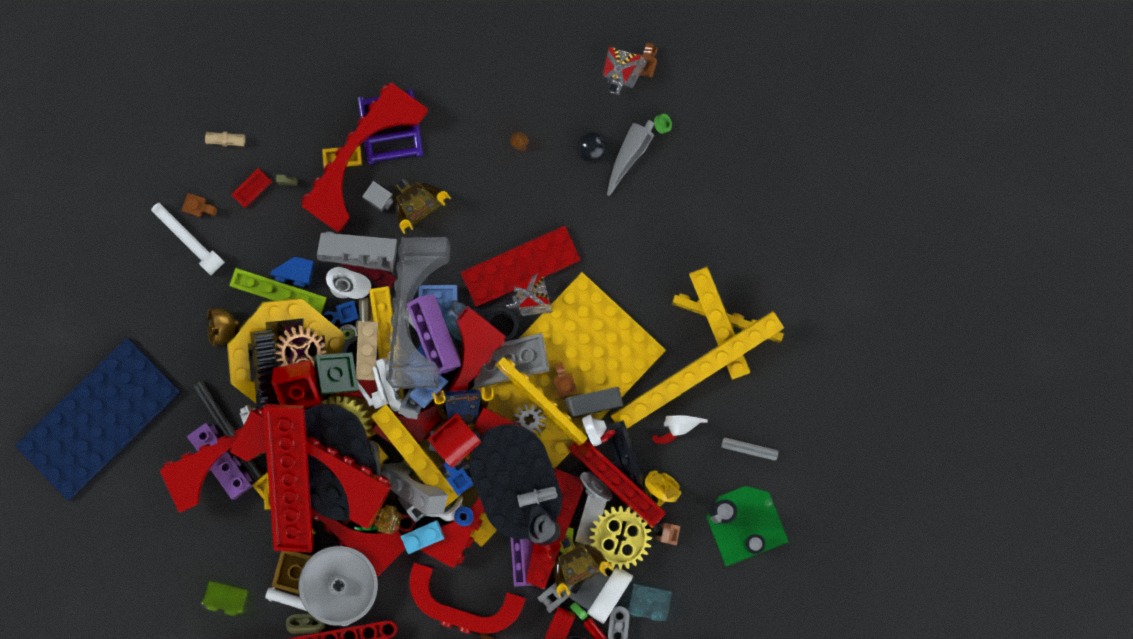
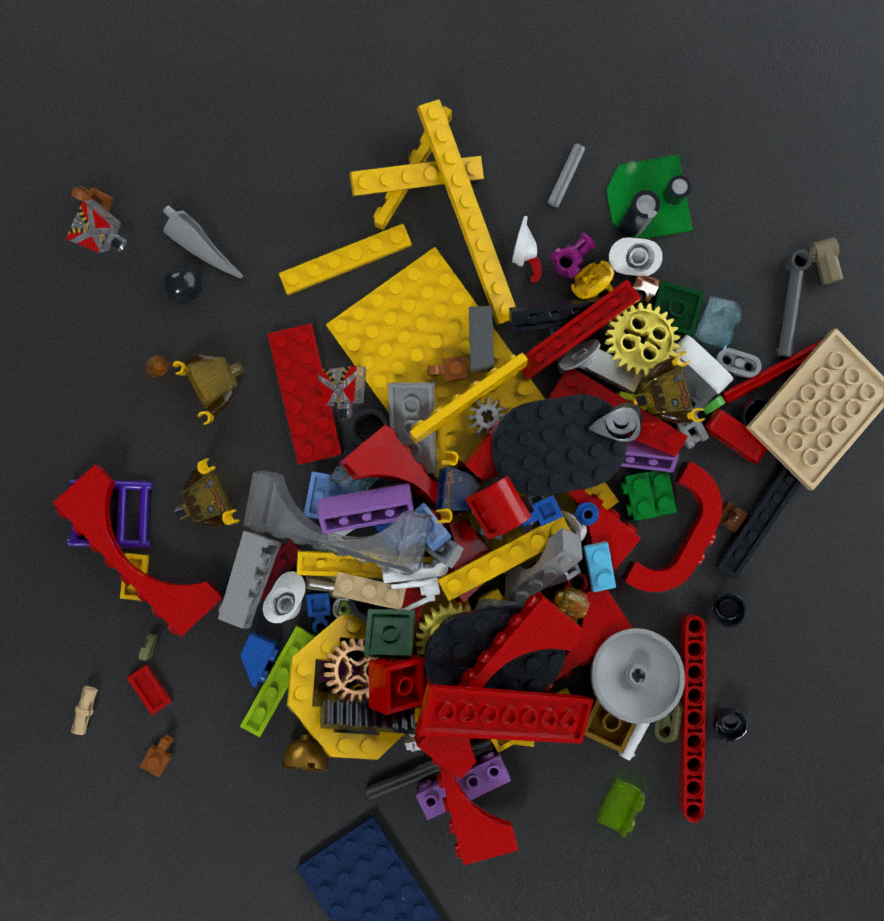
camera: 80 degrees left, 5 degrees up
(209, 260) = (225, 754): white piece -> none
(378, 197) = (190, 543): light grey brick -> none
(491, 571) = (648, 495): none -> green plate
(515, 188) = (211, 380): none -> clear yellow torso
(537, 496) = (584, 422): light grey axle -> none
(595, 430) = (515, 340): white piece -> none
(640, 277) = (345, 259): none -> yellow plate
(656, 565) = (681, 304): none -> dark green plate
(662, 123) = (170, 196): bright green tile -> none
(682, 467) = (572, 254): none -> magenta connector
(689, 518) = (635, 256): none -> white piece

